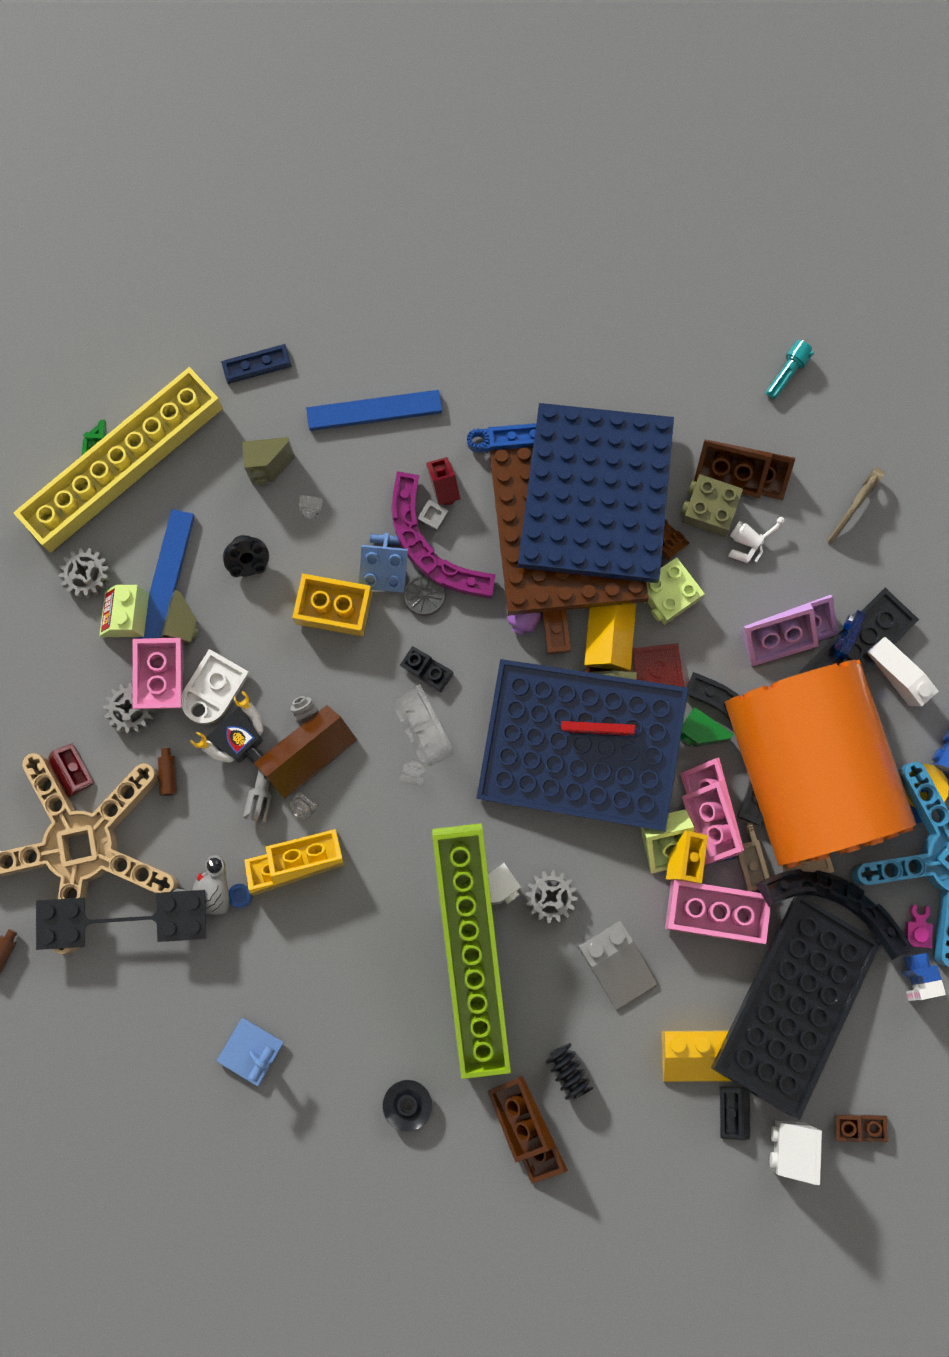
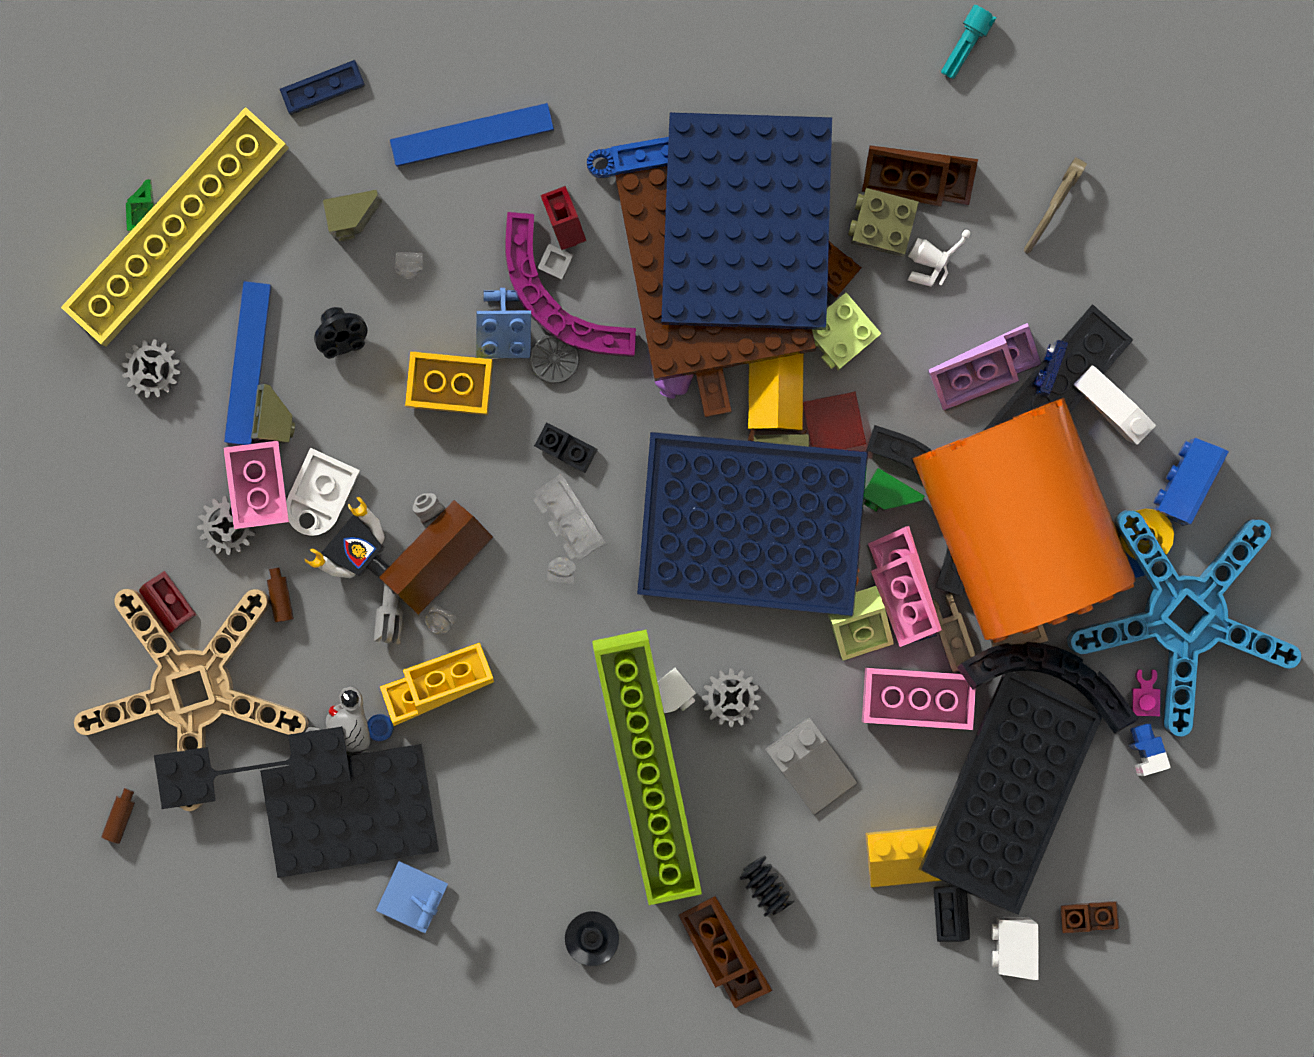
camera: 10 degrees left, 10 degrees up
(124, 611) = (204, 412): yellowish green slope -> none
(206, 977) = (353, 822): none -> black plate
(598, 728) = (769, 507): red tile -> none
(688, 858) = (881, 642): yellow slope -> none

